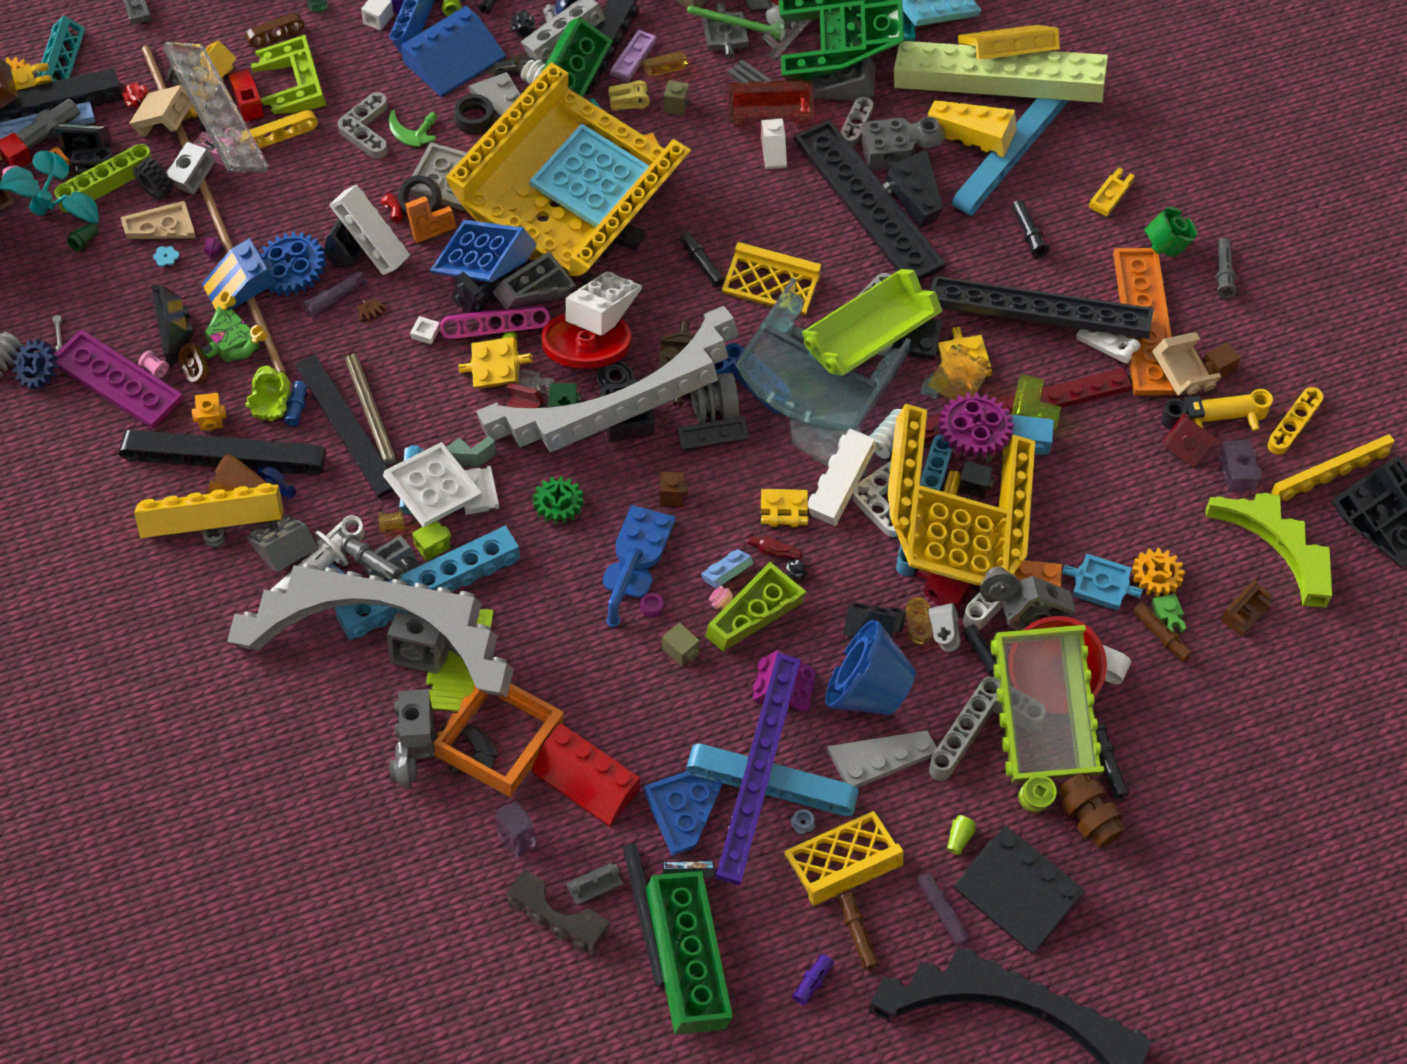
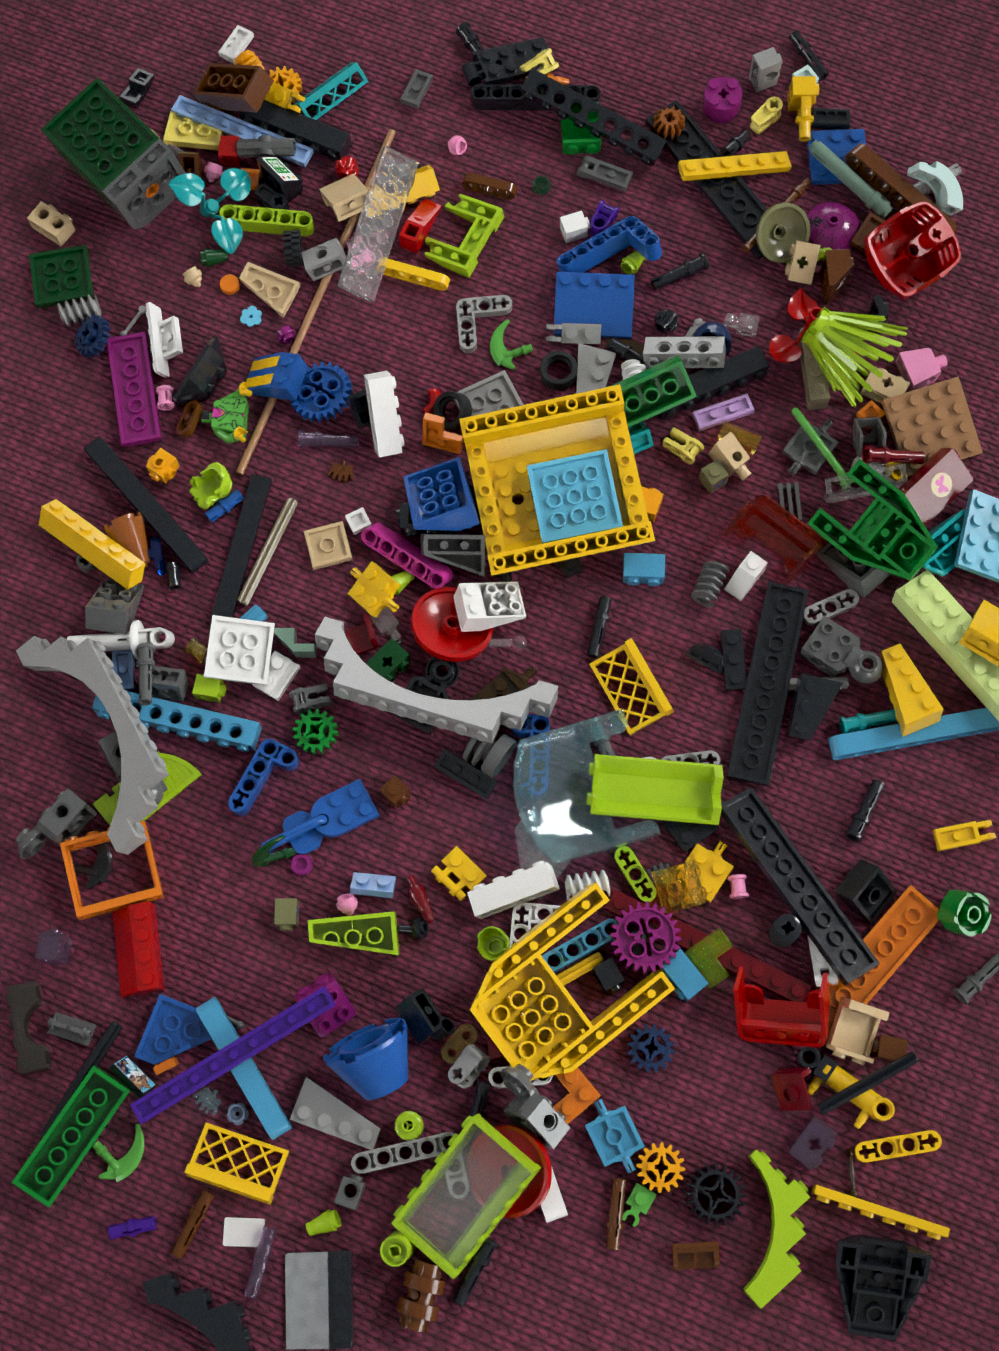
camera: 50 degrees right, 15 degrees up
(80, 262) = (195, 275): none -> tan plate
(106, 320) = (164, 339): none -> white bracket
(119, 247) = (229, 284): none -> orange tile
(214, 21) = (457, 145): none -> bright pink plate
(301, 482) = (173, 575): none -> black pin
(418, 365) = (328, 545): none -> tan plate
(460, 80) = (576, 333): none -> light grey hinge
(521, 486) = (309, 704): none -> dark grey piece
(547, 571) = (259, 779): none -> blue beam
(620, 613) = (263, 857): none -> dark green piece
(649, 319) = (518, 642): none -> clear bar
(676, 69) = (731, 456): none -> tan torso
(691, 195) = (643, 569): none -> dark azure brick
(706, 836) = (166, 1065): none -> orange tile
(753, 168) = (707, 583): none -> dark grey piece
(754, 943) = (125, 1166): none -> bright green piece
(768, 833) = (208, 1099): none -> clear light blue piece
(803, 217) = (707, 656): none -> black plate
(825, 207) = (733, 660): none -> black plate
(866, 528) = (492, 943): none -> lime hair
(899, 401) = (621, 864): none -> lime beam
(903, 904) = (242, 1231): none -> white sticker
(947, 705) = (417, 1125): none -> lime head
(956, 803) = (343, 1199): none -> dark grey brick
(963, 173) = (862, 722): none -> teal pin
(999, 346) = (738, 886): none -> bright pink bush
(1060, 501) = (640, 1046): none -> dark blue gear
(1066, 342) = (792, 927): none -> black piece
(1088, 275) = (866, 890): none -> black slope
(1135, 400) = (781, 1020): none -> red windscreen
(1213, 563) = (734, 1201): none -> black gear
(1233, 388) = (867, 1083): none -> black axle
(1270, 452) = (850, 1154): none -> dark brown hinge

